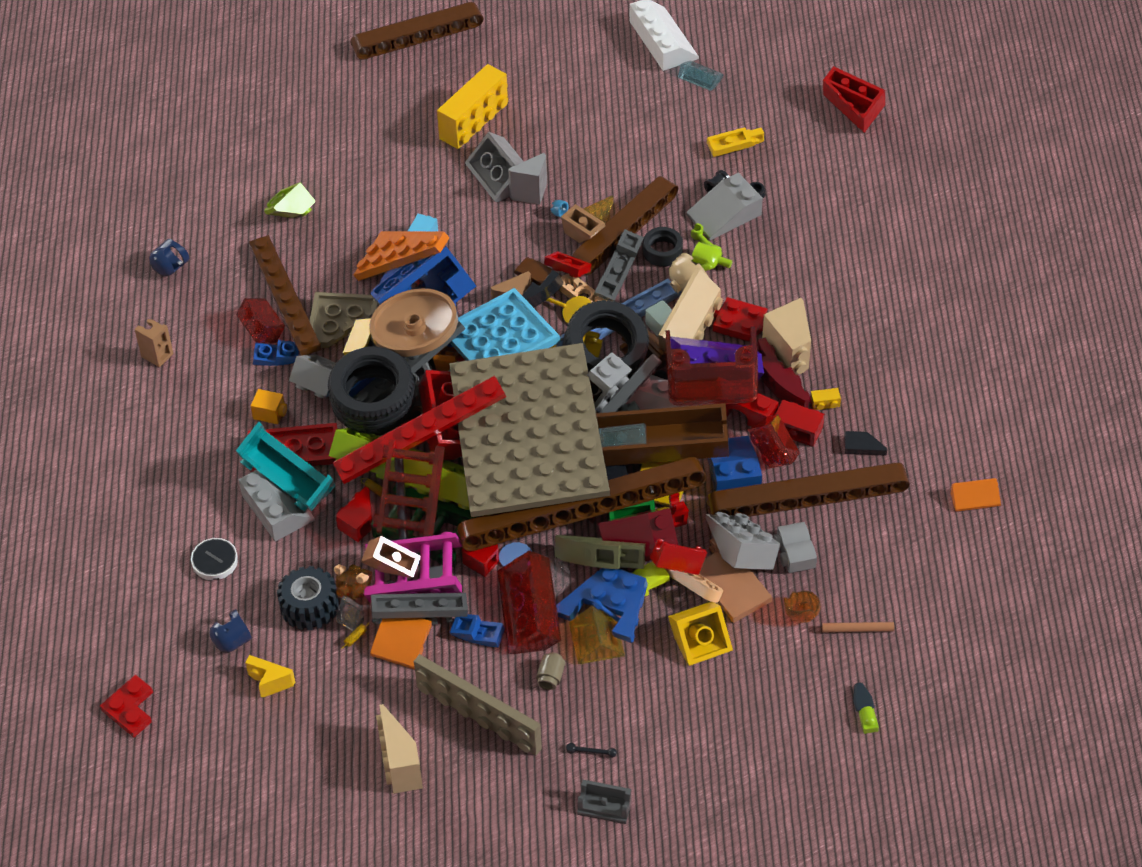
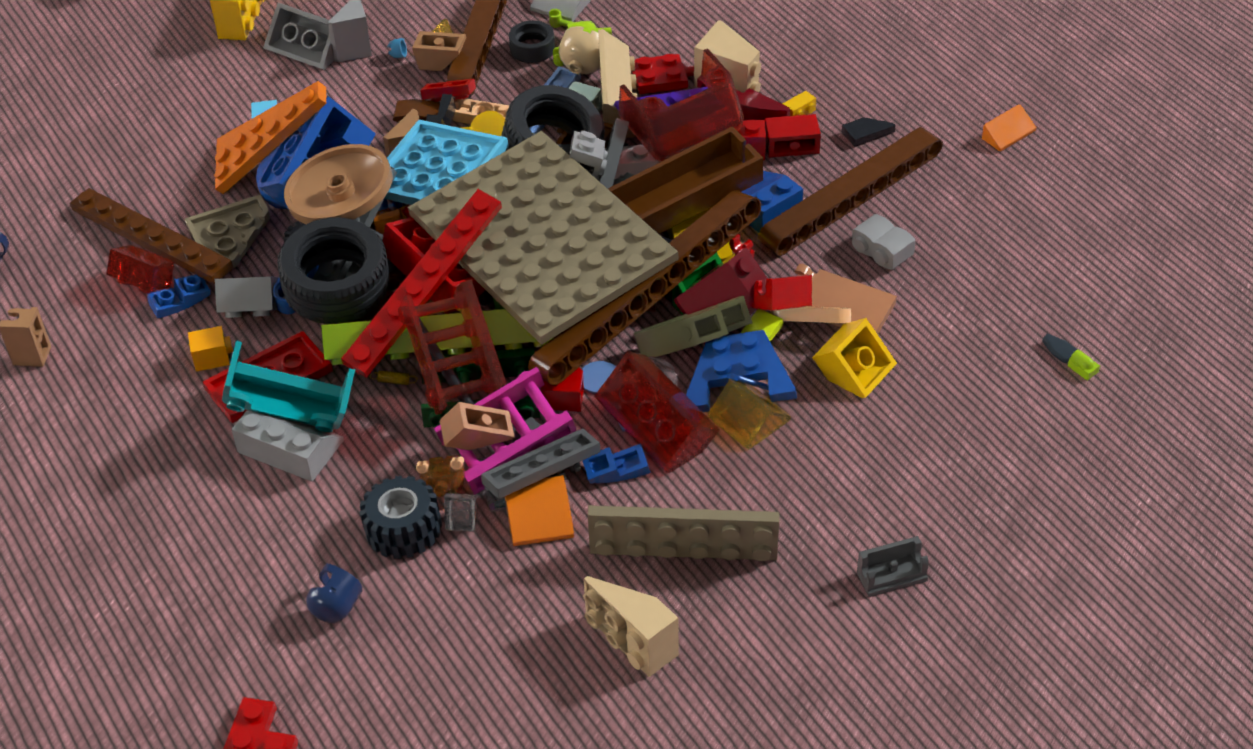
camera: 30 degrees left, 5 degrees down
(214, 559) = (253, 529): black tile -> none
(272, 677) = (418, 616): yellow slope -> none
(290, 202) = (95, 146): slope -> none
(355, 635) = (481, 533): yellow piece -> none
(356, 516) = (395, 411): red slope -> none
(359, 336) = (270, 238): yellow hinge -> none
(550, 671) = (729, 466): dark tan brick -> none
(572, 748) = (810, 533): black hinge -> none
(619, 266) = (500, 70): dark grey slope -> none
(623, 435) = (649, 197): clear light blue slope -> none
(742, 541) = (832, 256): light grey slope -> none
(774, 442) = (790, 155): clear red slope -> none
(802, 606) = (935, 290): clear orange hair -> none
(858, 627) = (999, 287): nougat bar -> none

